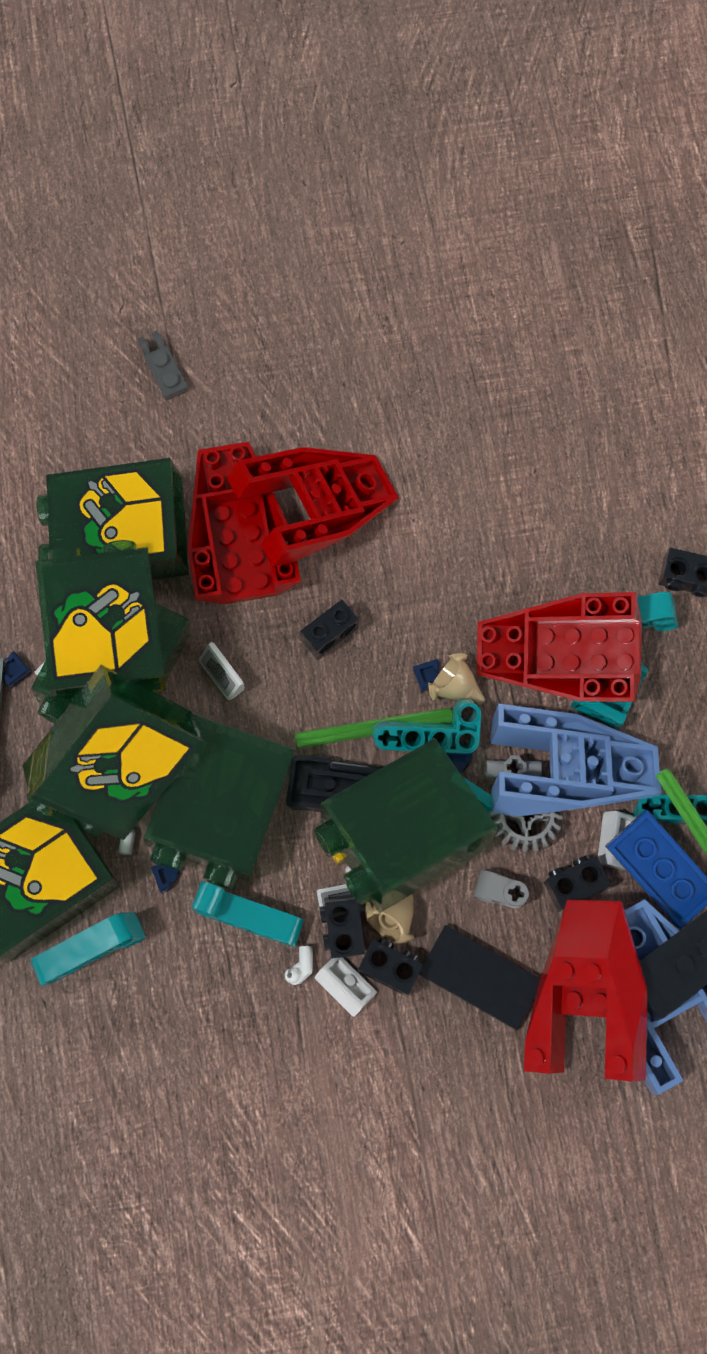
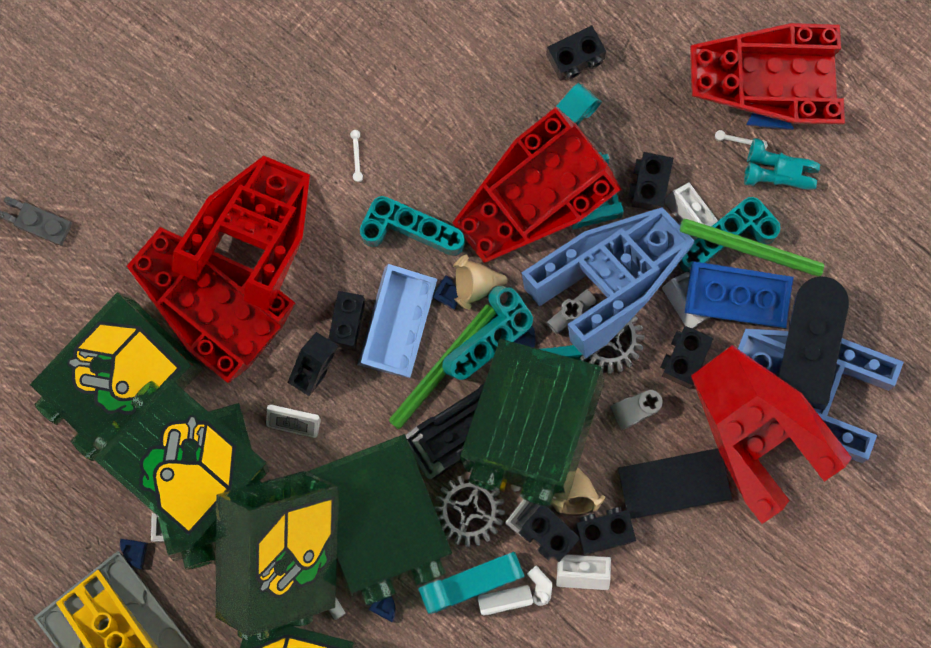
camera: 35 degrees left, 5 degrees up
(263, 953) = (505, 600): none -> white slope
(273, 638) = (312, 363): none -> black brick
(285, 863) = (461, 531): none -> light grey gear
(369, 663) = (397, 321): none -> light blue slope
(434, 528) = (357, 176): none -> white hinge
(442, 604) = (414, 230): none -> teal beam
(669, 725) = (656, 183): none -> black brick
(682, 762) = (687, 204): none -> white slope

